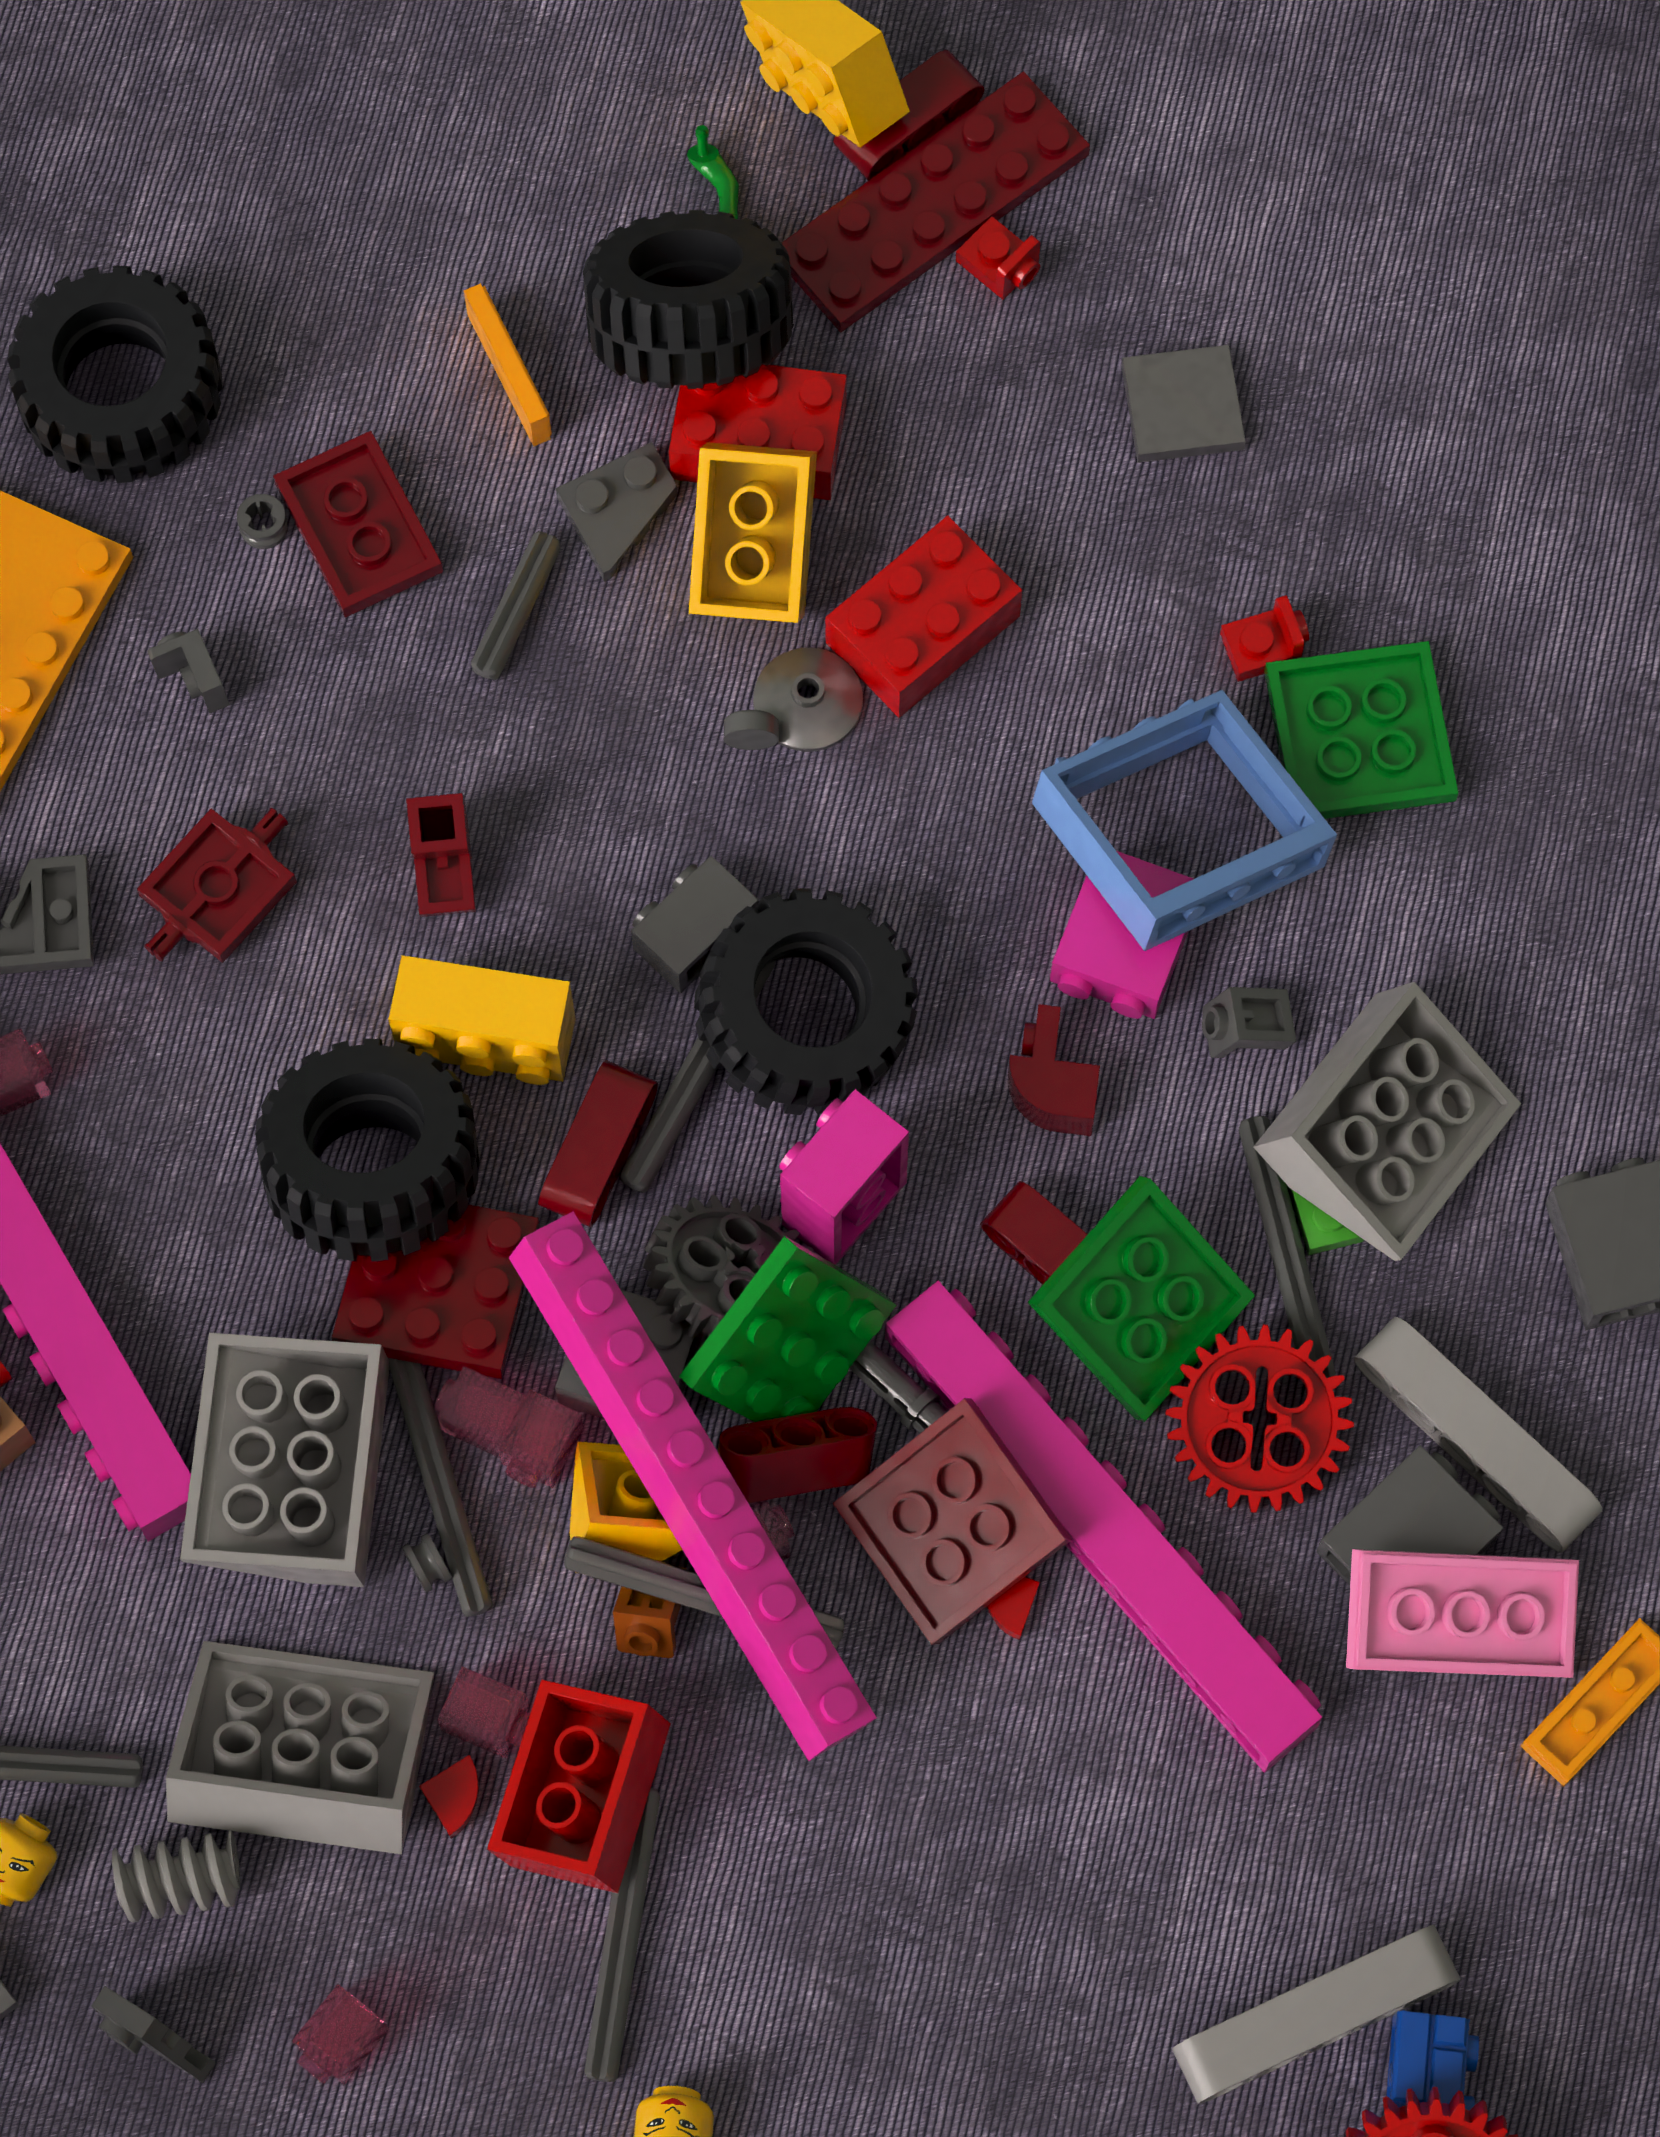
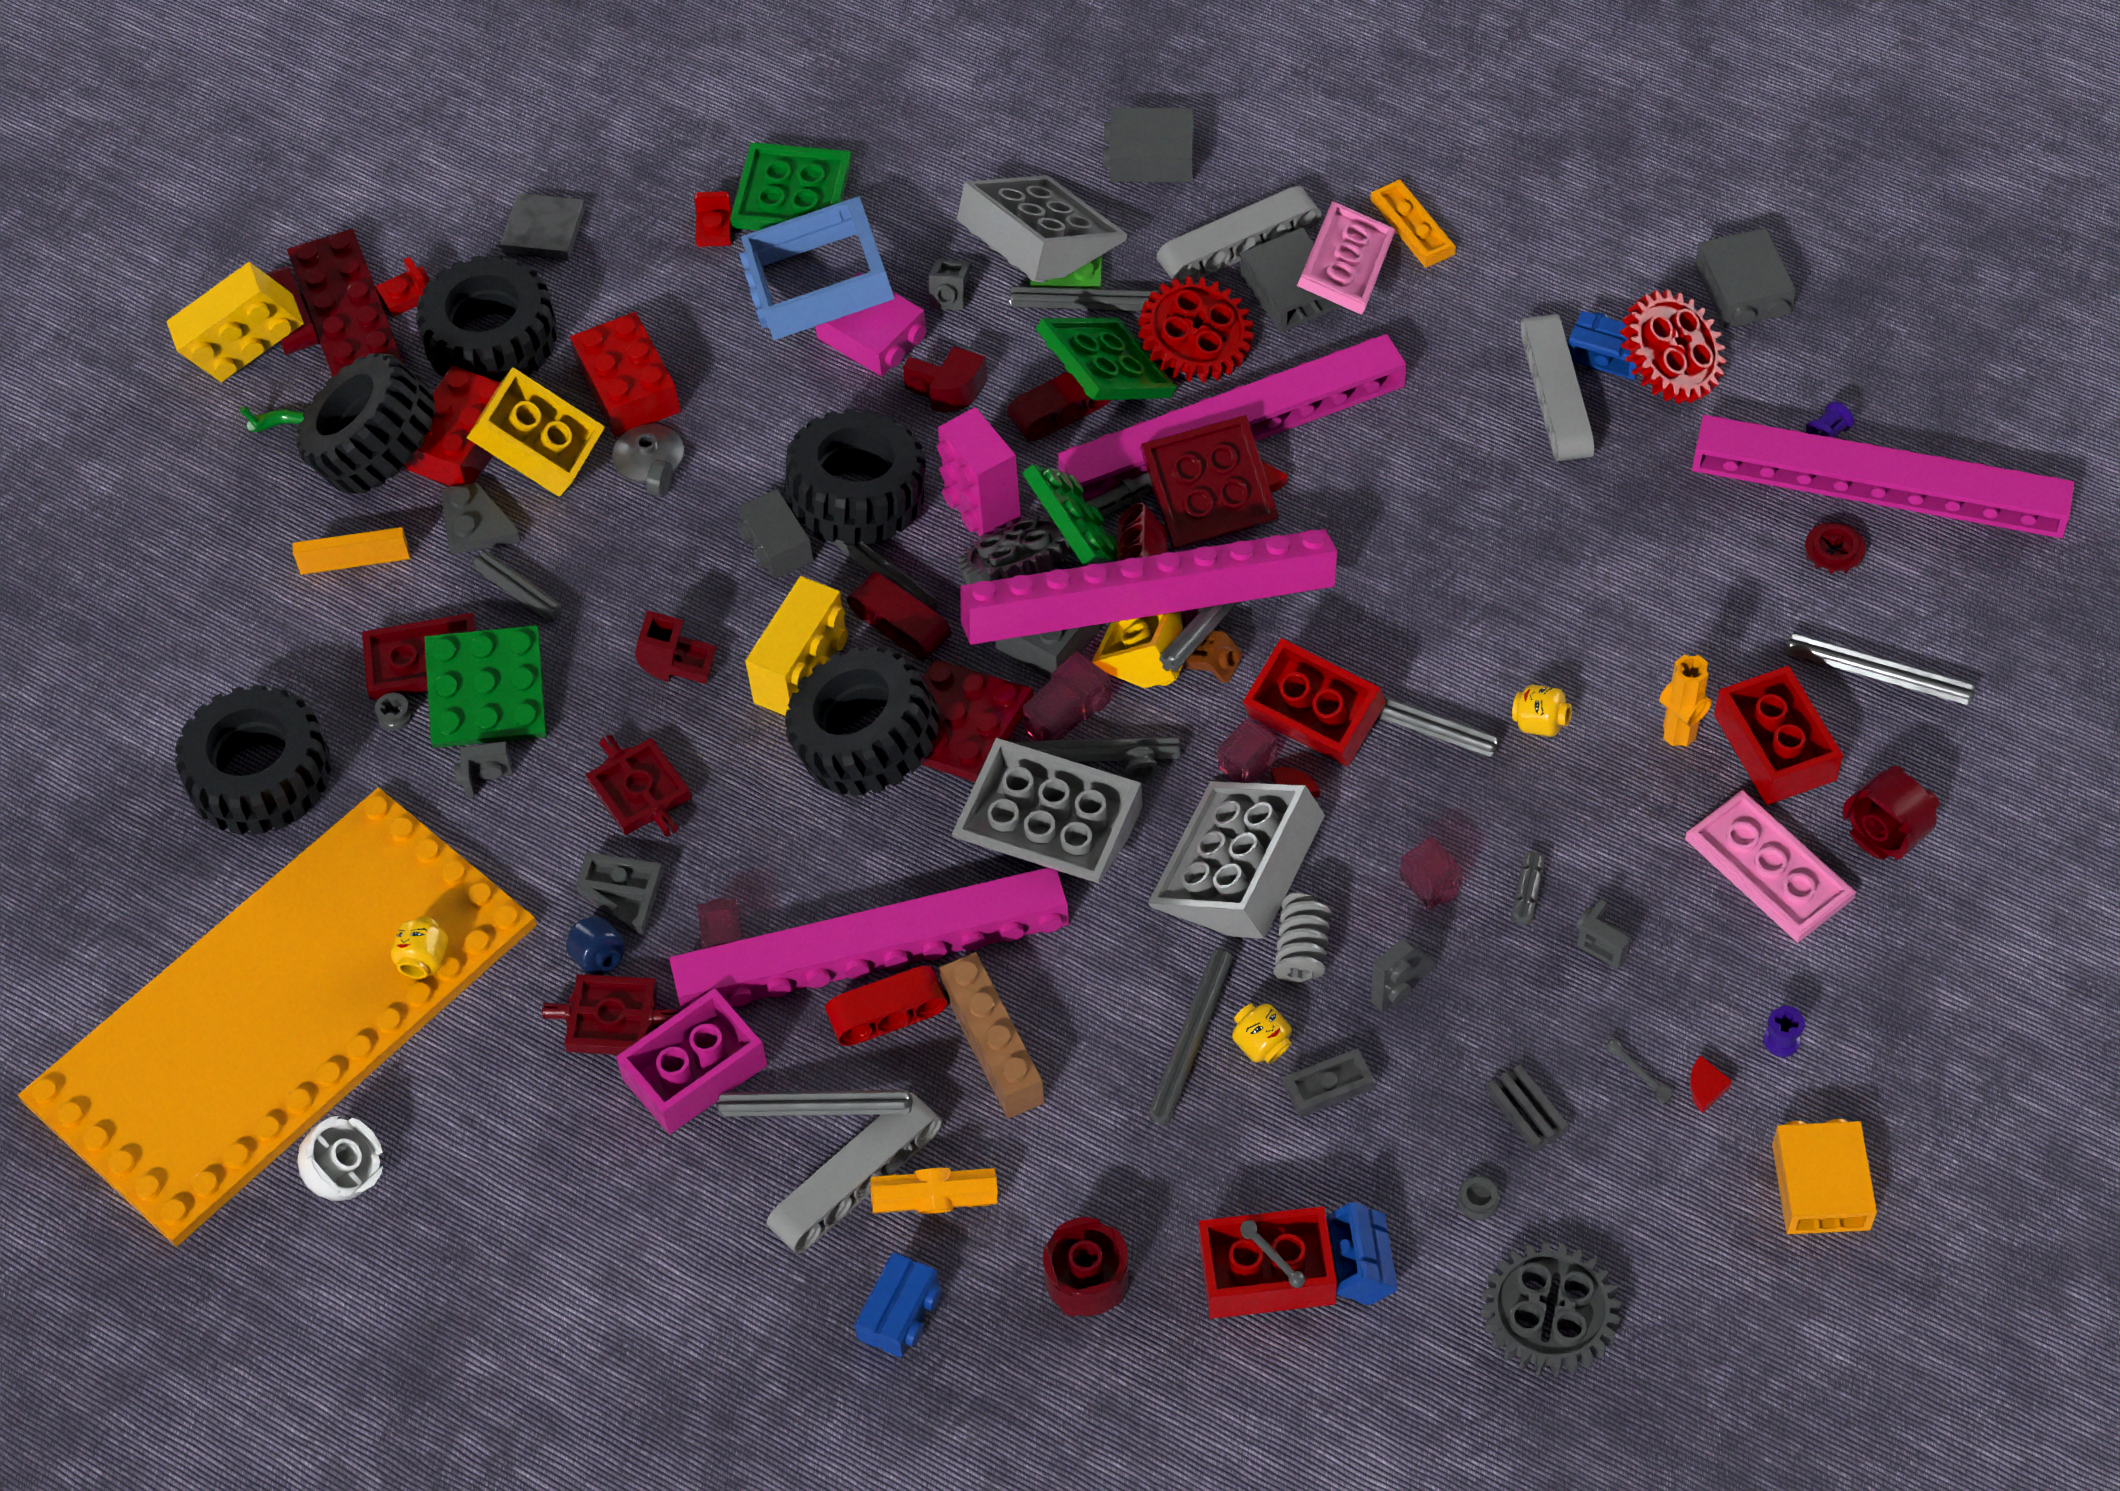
camera: 70 degrees left, 15 degrees down
(320, 625) = (485, 686): none -> green plate
(962, 330) = (479, 290): none -> black tyre

